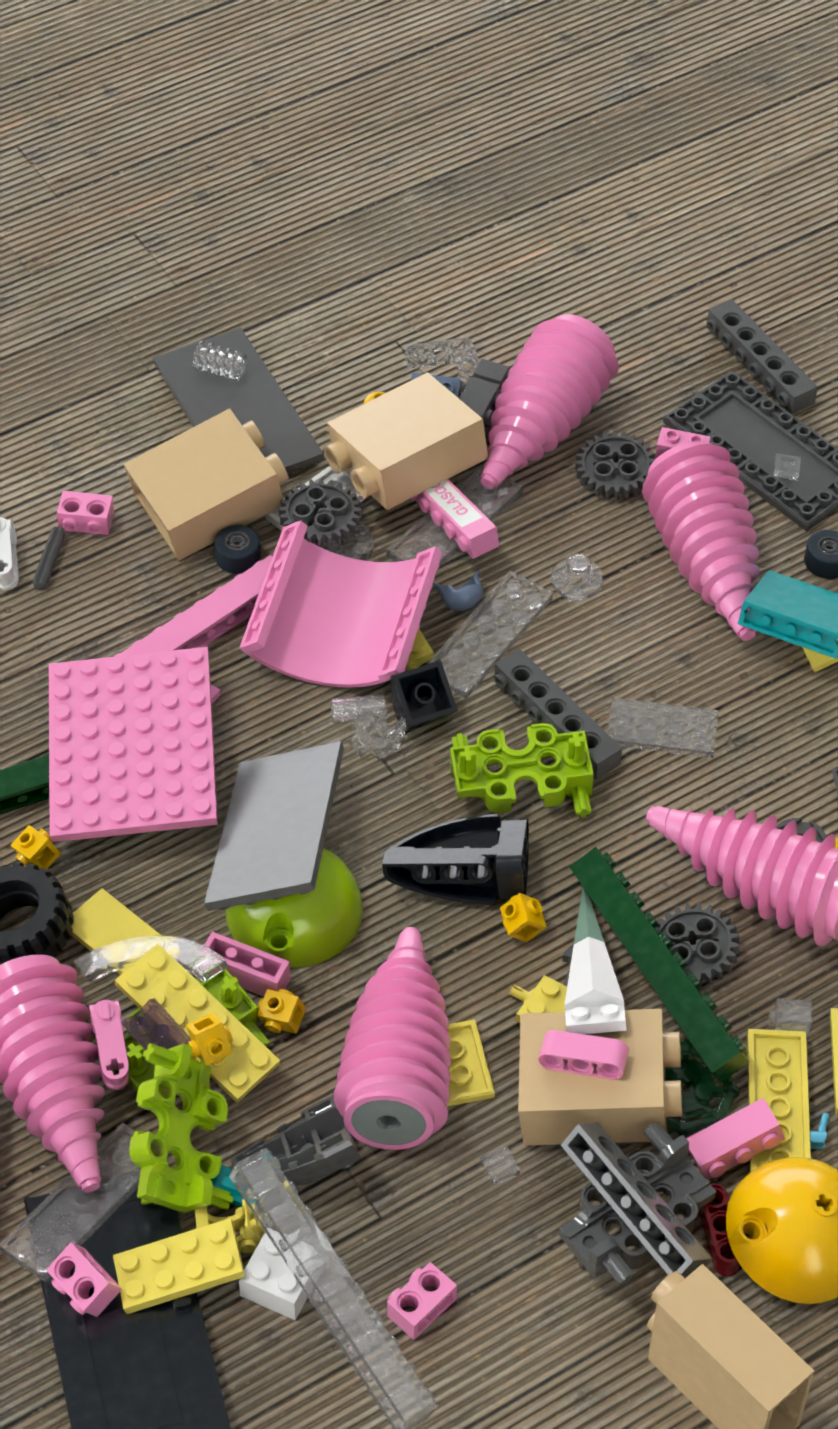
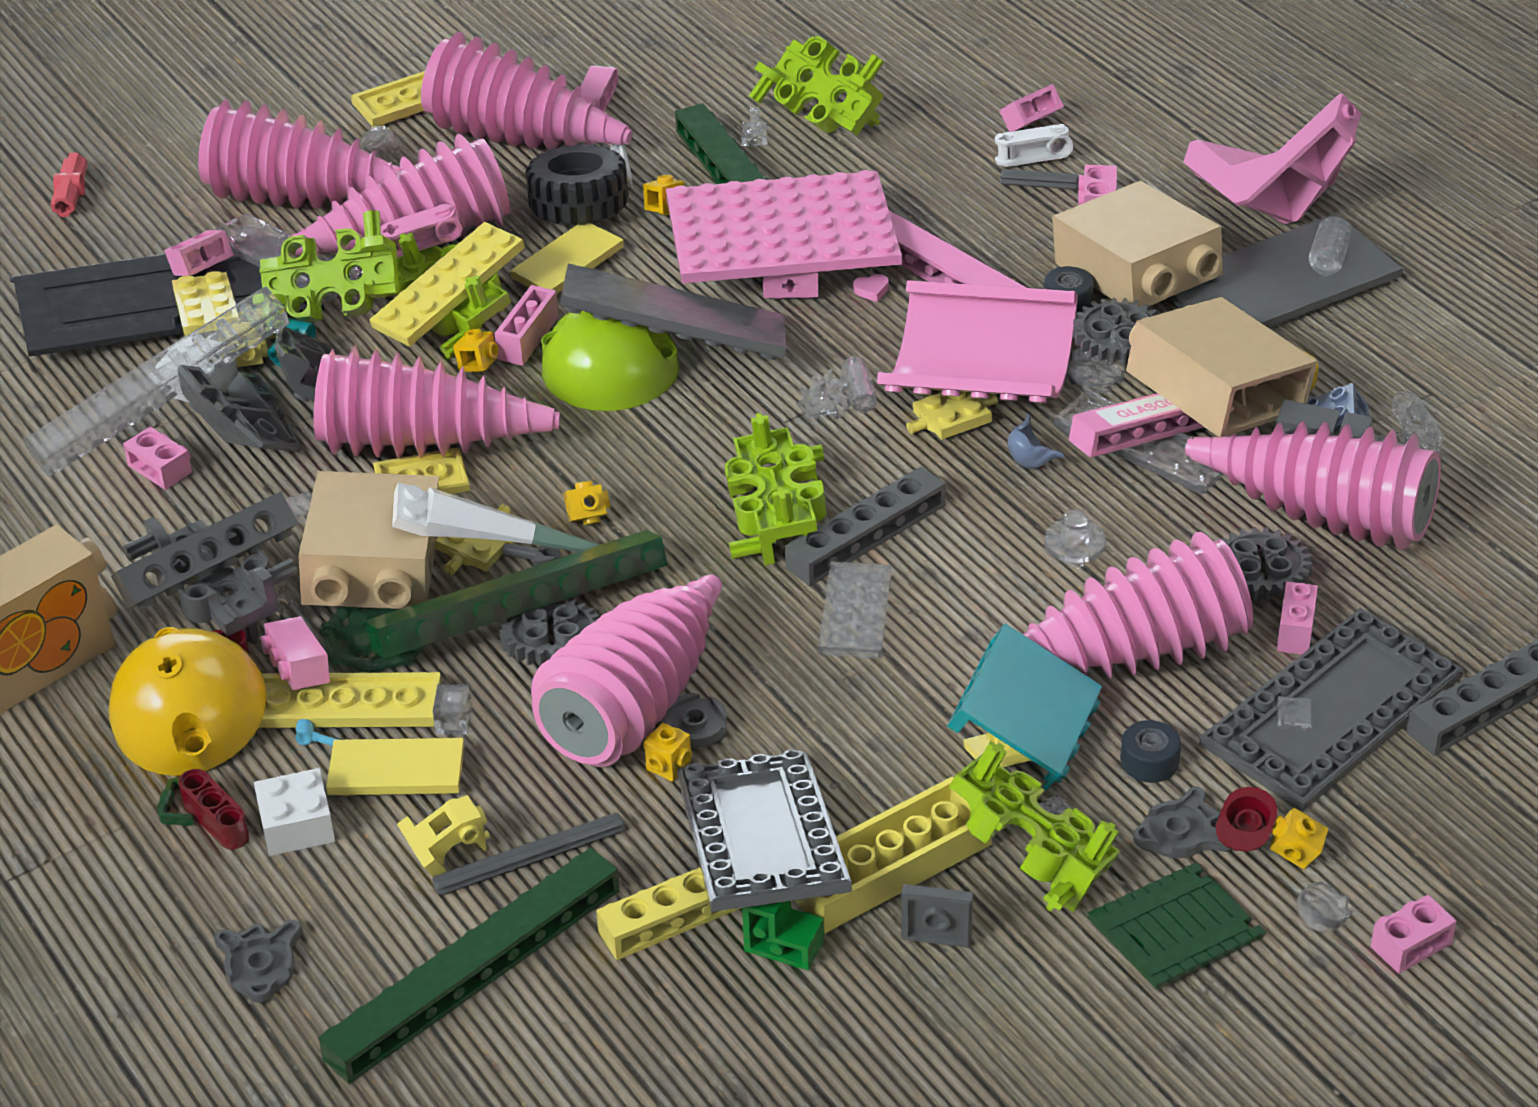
camera: 90 degrees right, 10 degrees down
(119, 376) = (1286, 180): none -> bright pink panel
(155, 1026) = (424, 250): panel -> none
(189, 954) = (533, 266): clear tile -> none
(209, 1039) = (408, 272): yellow brick -> none
(372, 1219) = (241, 412): none -> dark grey wedge
(422, 695) = (864, 413): black slope -> none
(463, 860) = (657, 461): black panel -> none
(491, 631) = (981, 473): clear plate -> none
(583, 1054) = (366, 499): bright pink beam -> none

